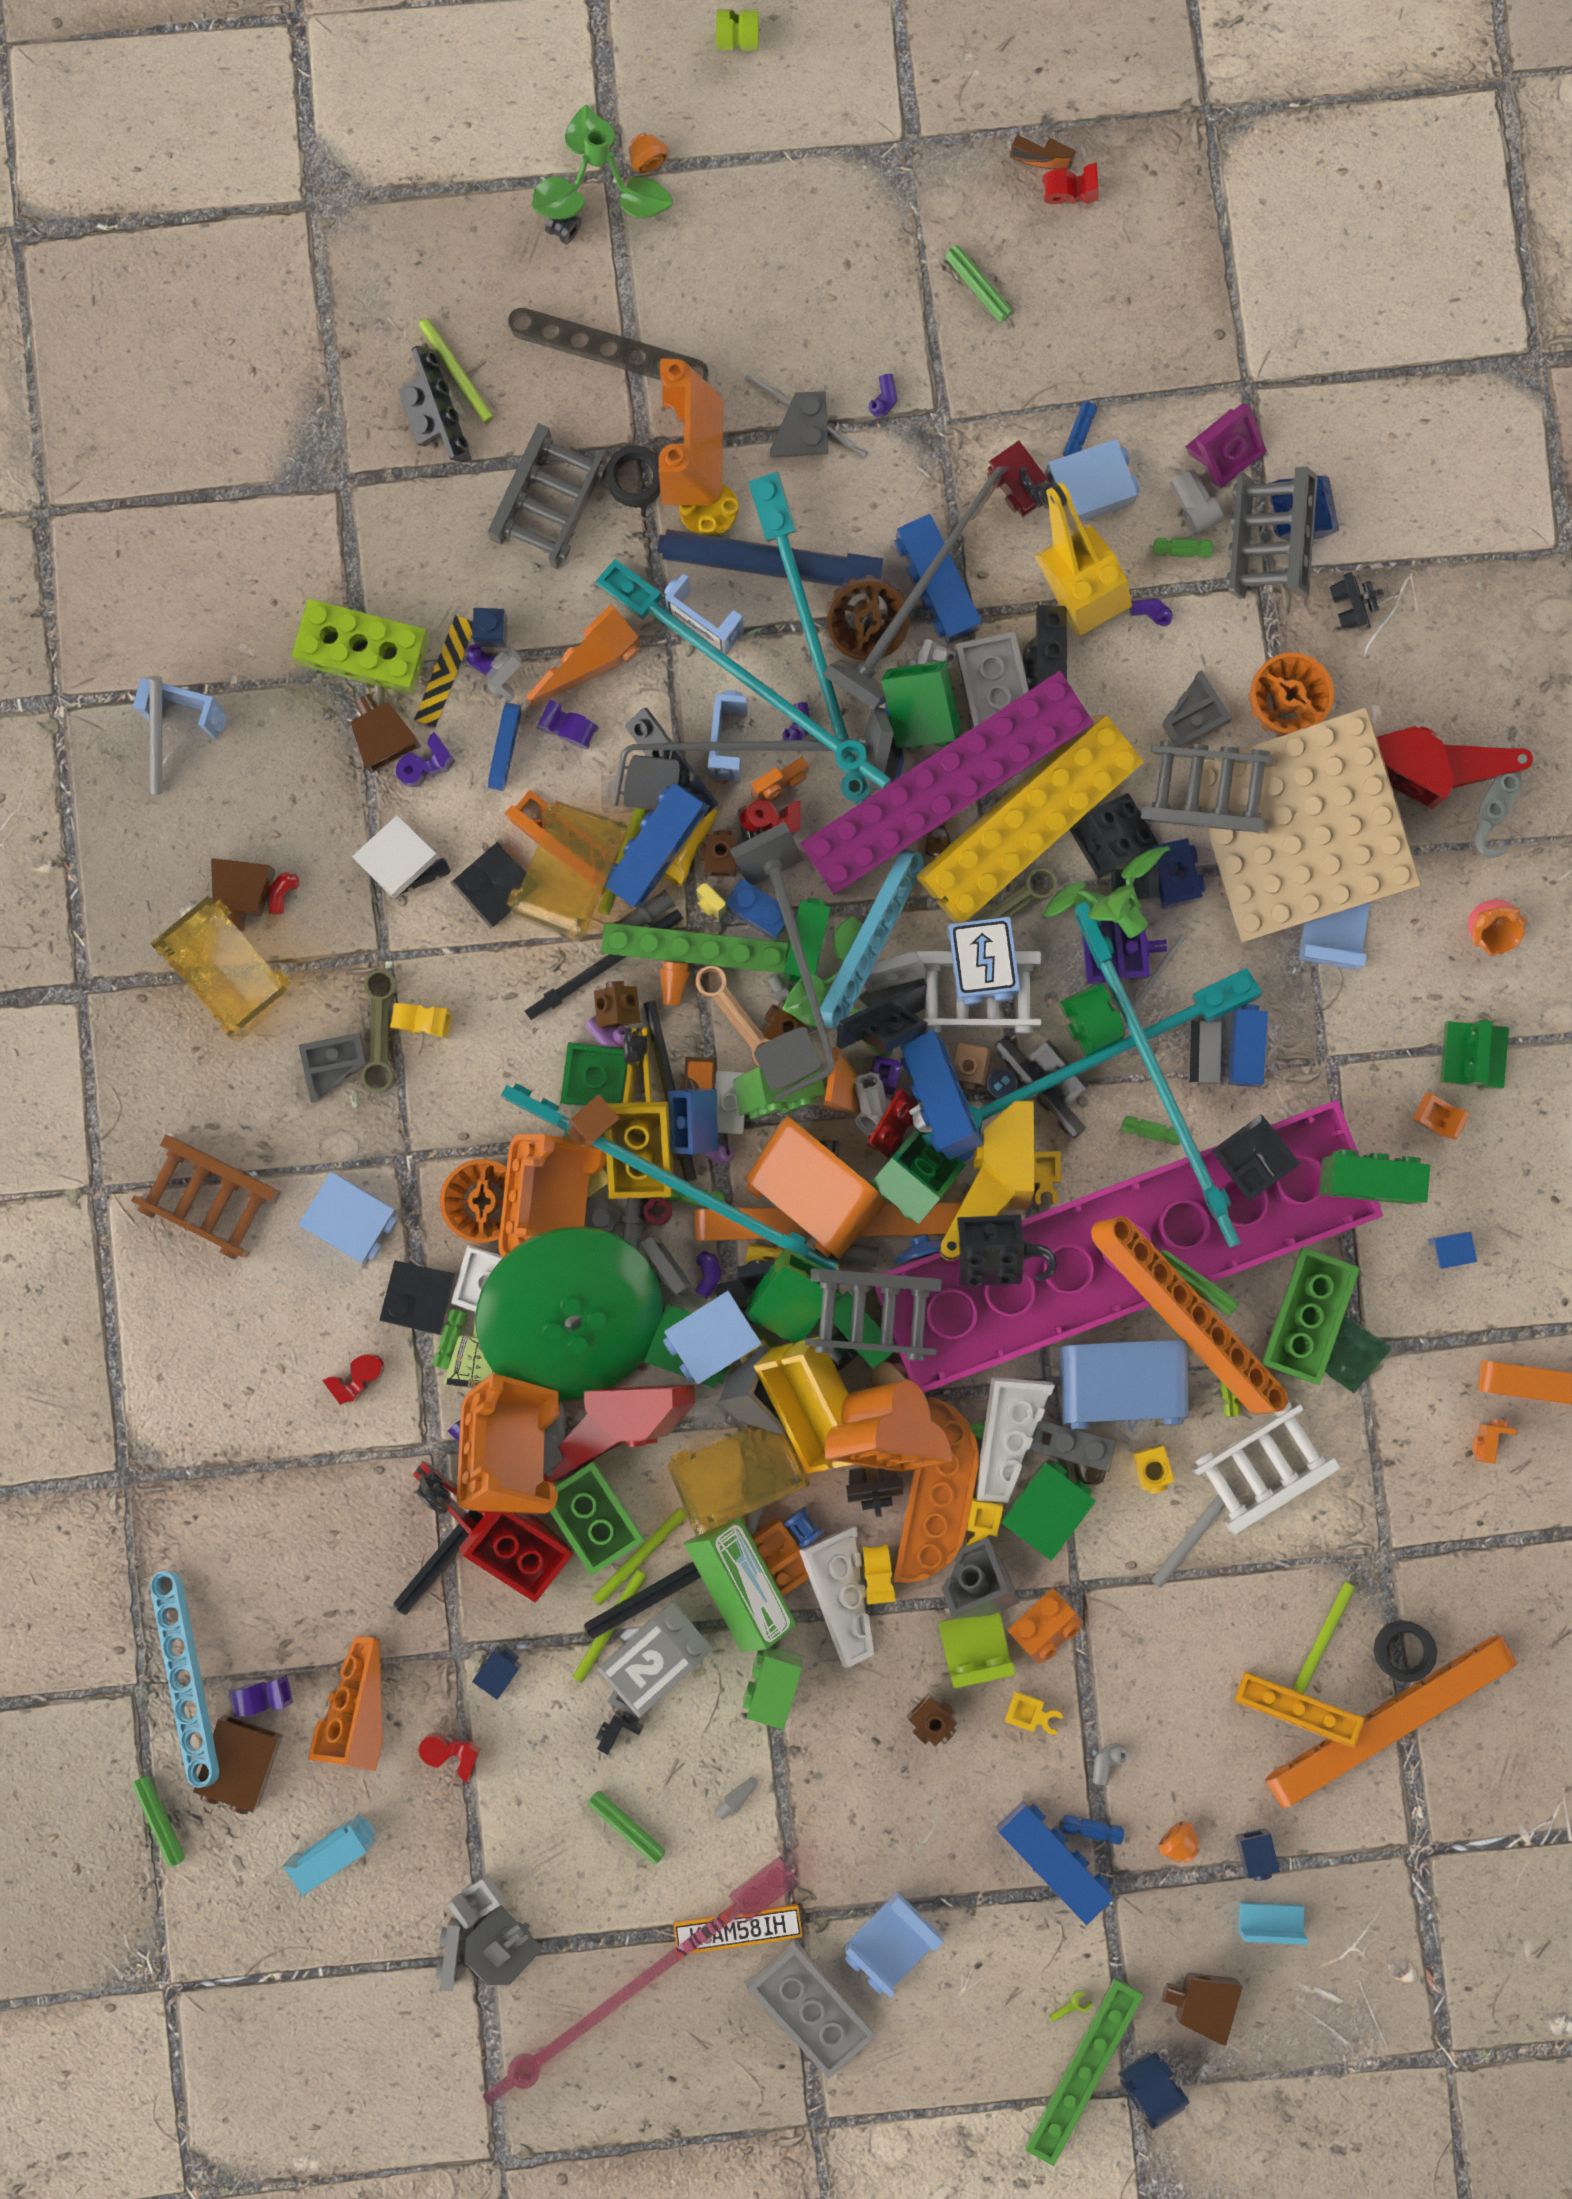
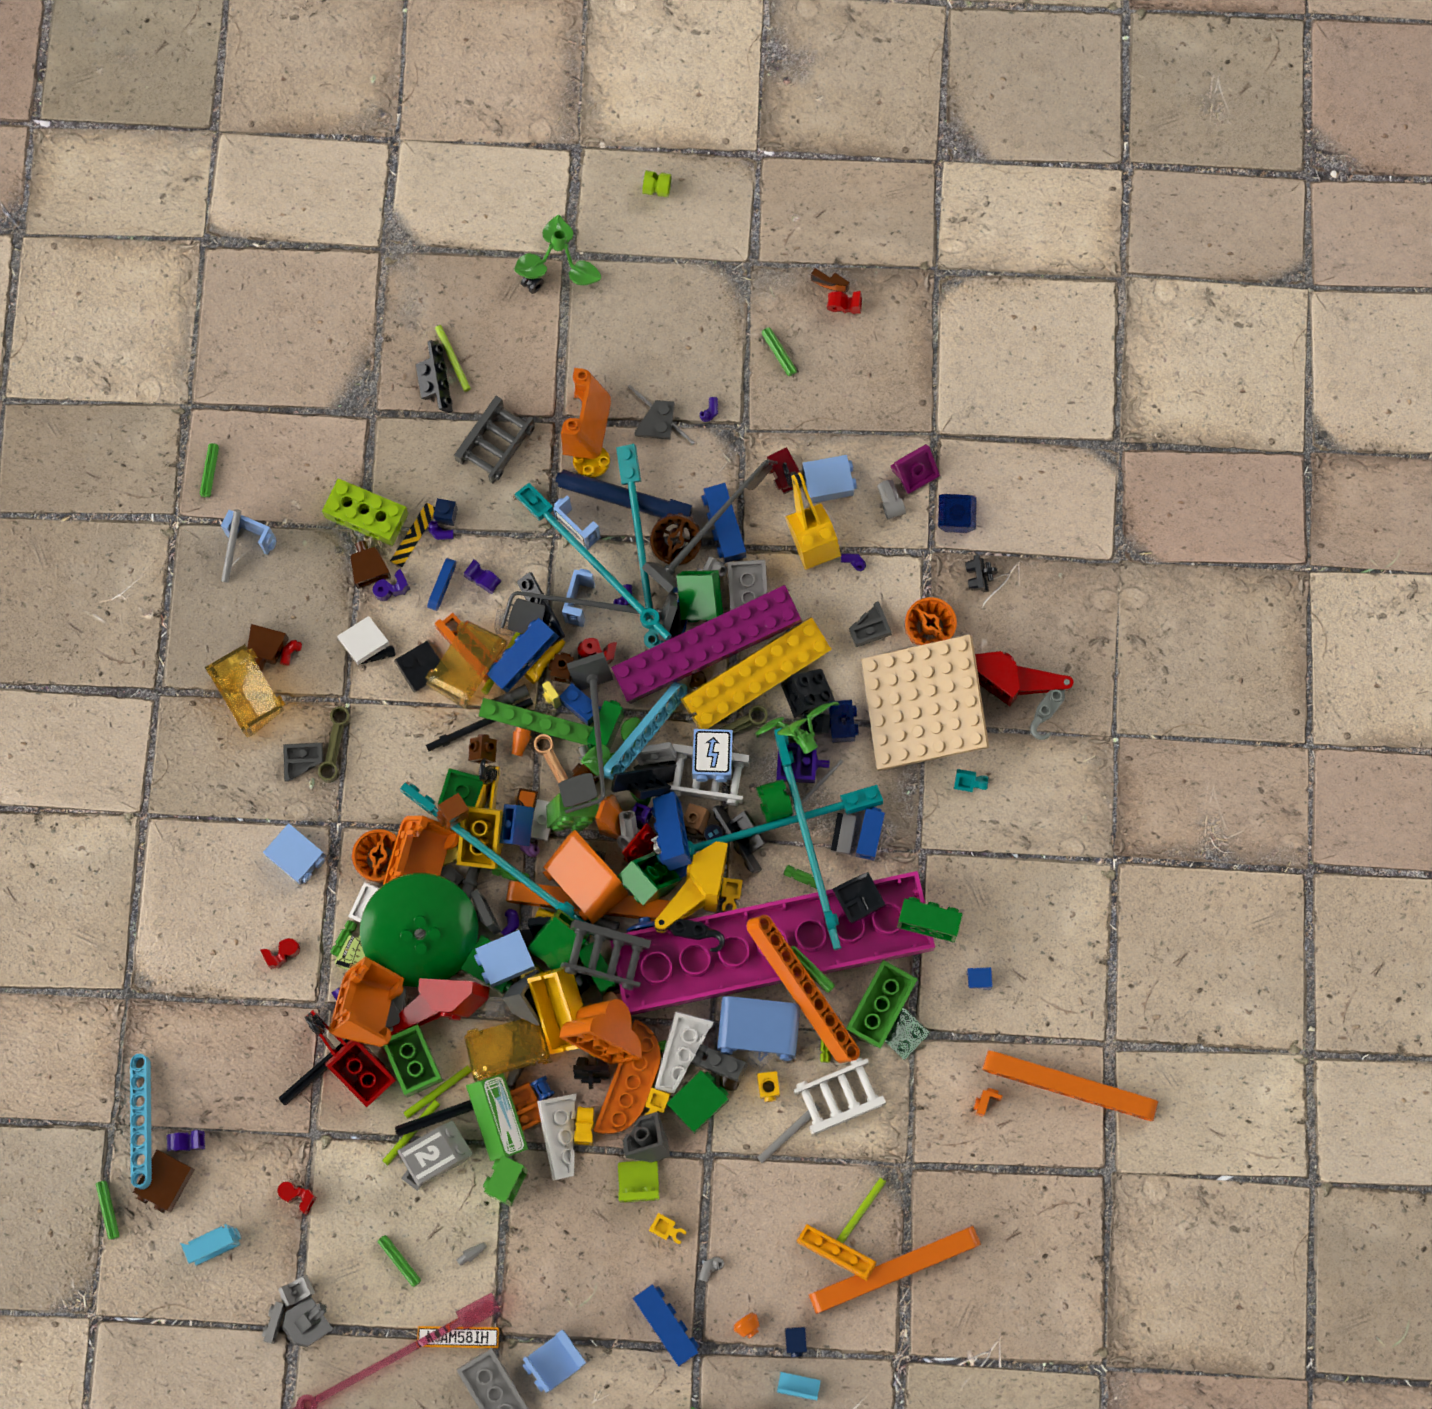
camera: 15 degrees right, 10 degrees down
(96, 614) = (209, 470): none -> bright green axle
(204, 1167) = (212, 809): dark orange fence -> none
(353, 1723) = (241, 1165): orange wedge -> none
(417, 1297) = (328, 910): black plate -> none
(420, 1019) = (359, 739): yellow leg -> none
(497, 1672) = (335, 1149): dark blue brick -> none
(503, 667) = (449, 536): light grey bracket -> none
(596, 338) = (536, 358): clear smoke beam -> none
(604, 647) = (512, 533): orange wedge -> none
(606, 1036) = (471, 767): medium lavender arm -> none
(608, 1732) = (400, 1197): black bracket -> none
(617, 460) = (542, 423): black tyre -> none
(647, 153) = (590, 247): orange cone -> none
(665, 1217) = (490, 883): dark red bush -> none
(666, 1076) = (506, 799): black bar -> none
(770, 784) = (601, 629): orange plate -> none
(930, 1709) = (600, 1215): reddish brown brick -> none
(990, 1250) = (684, 929): black bracket -> none
(1046, 1626) = (685, 1175): orange bracket -> none
(1048, 650) = (785, 570): black bracket -> none
(1080, 428) = (827, 445): blue axle -> none
(1093, 1829) = (694, 1309): blue axle -> none
(1182, 547) = (880, 526): bright green axle -> none
(1220, 816) = (873, 689): dark grey fence -> none
(1297, 547) = (946, 534): dark grey fence -> none
(1336, 939) = (937, 775): light blue panel -> none
(1387, 937) = (967, 780): none -> teal plate
(1429, 1654) = (924, 1219): black tyre -> none
(1440, 1117) = (984, 894): orange bracket -> none
(1474, 1054) = (1013, 860): green bracket -> none
(1496, 926) = (1036, 782): orange hair -> none

